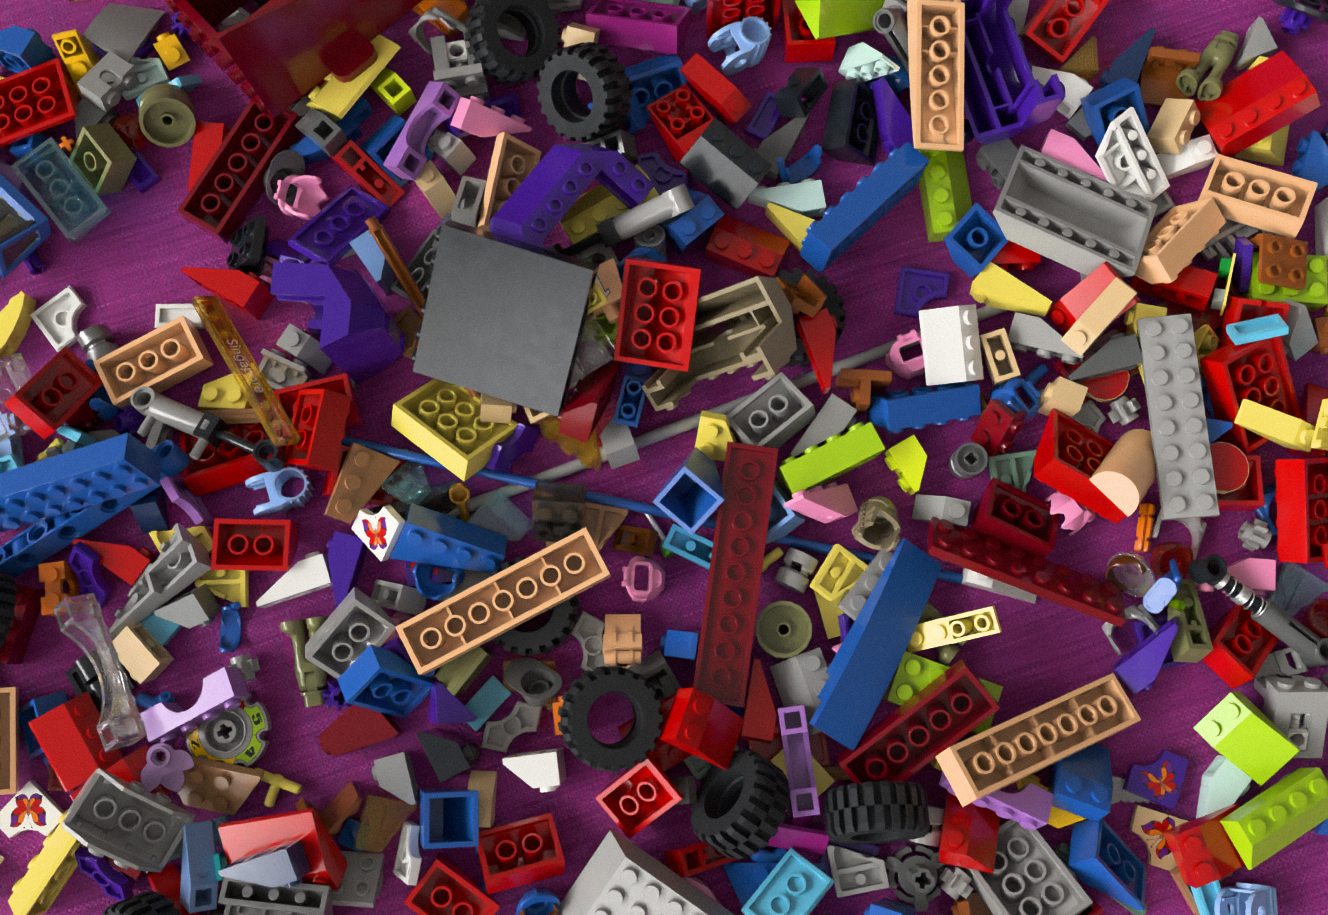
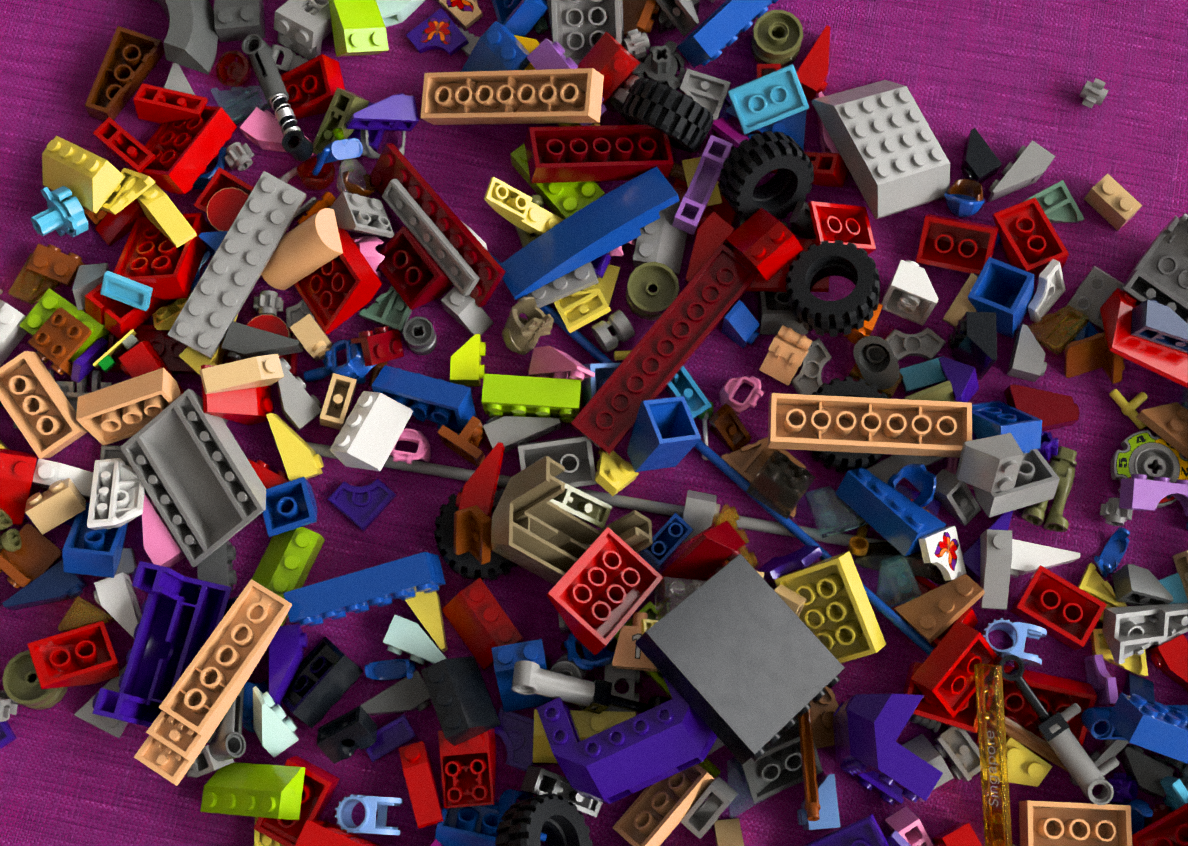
camera: 150 degrees left, 5 degrees down
(326, 545) = (995, 568): none -> light grey slope
(371, 626) = (990, 463): none -> light grey slope
(733, 386) = (583, 506): none -> olive slope
(1021, 553) = (430, 237): none -> light grey tile
(1098, 536) = (361, 215): none -> light grey slope

